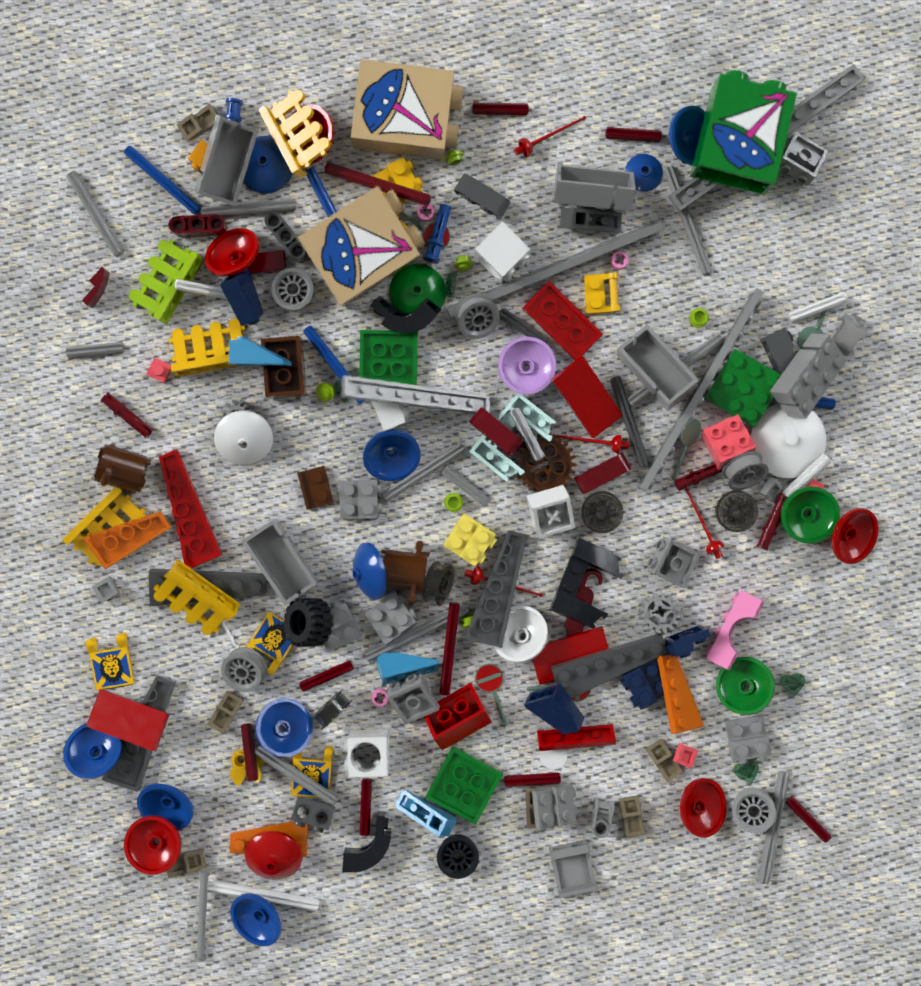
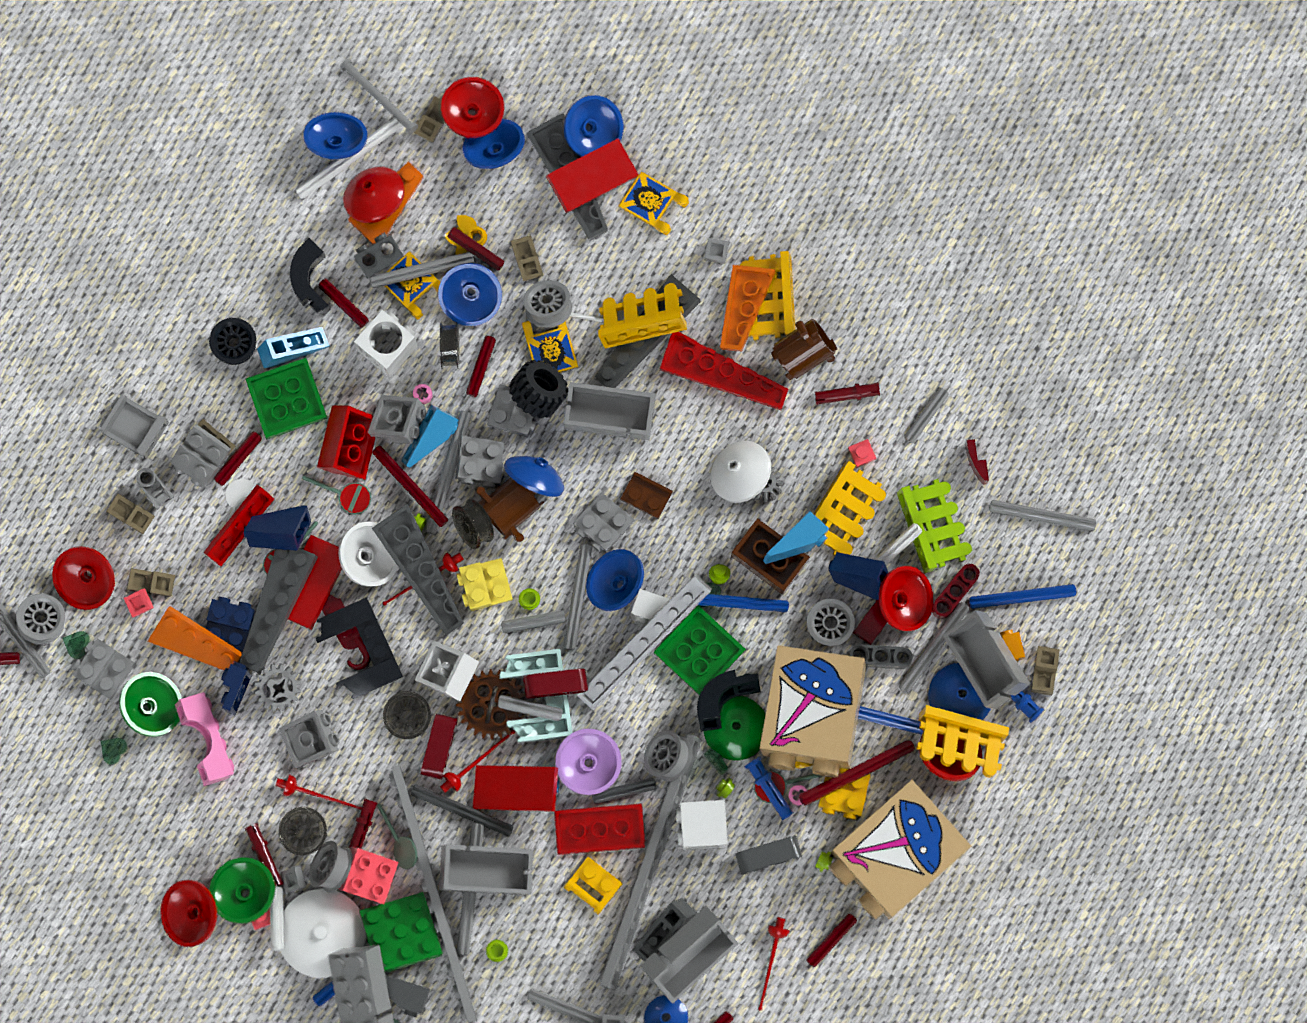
camera: 130 degrees right, 10 degrees down
(613, 259) = (603, 930): bright pink bush -> none

